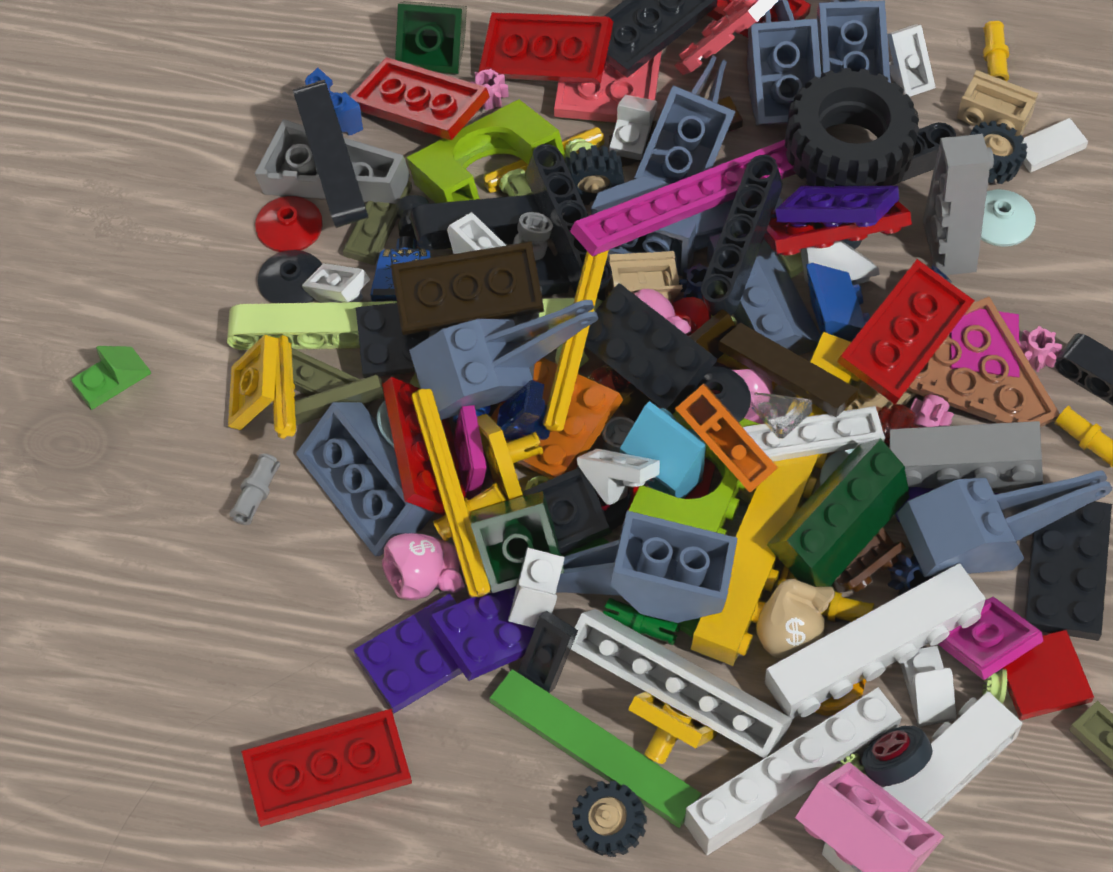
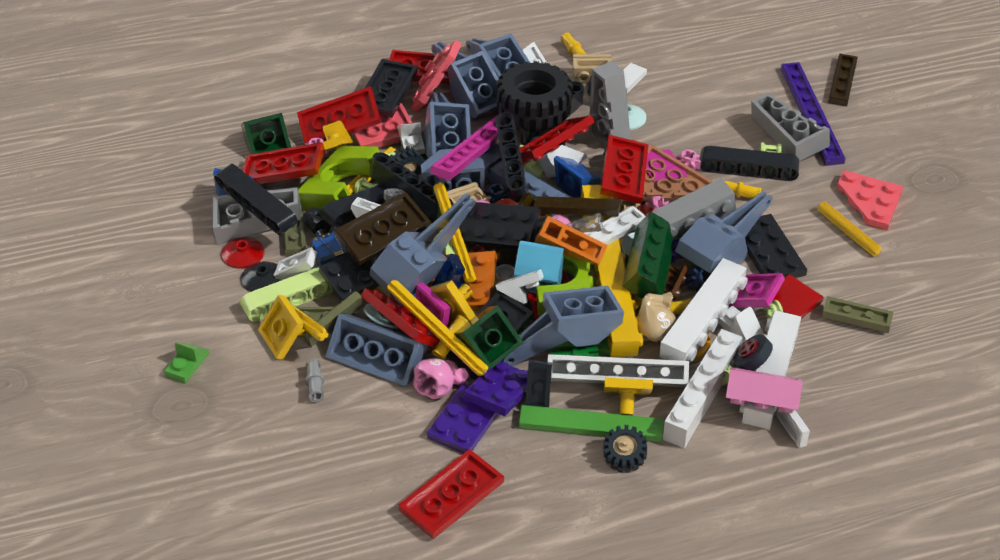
camera: 30 degrees left, 15 degrees down
(521, 82) = (336, 136): none -> yellow slope
(536, 587) = (515, 354): white slope -> none
(837, 205) = (551, 126): dark purple plate -> none

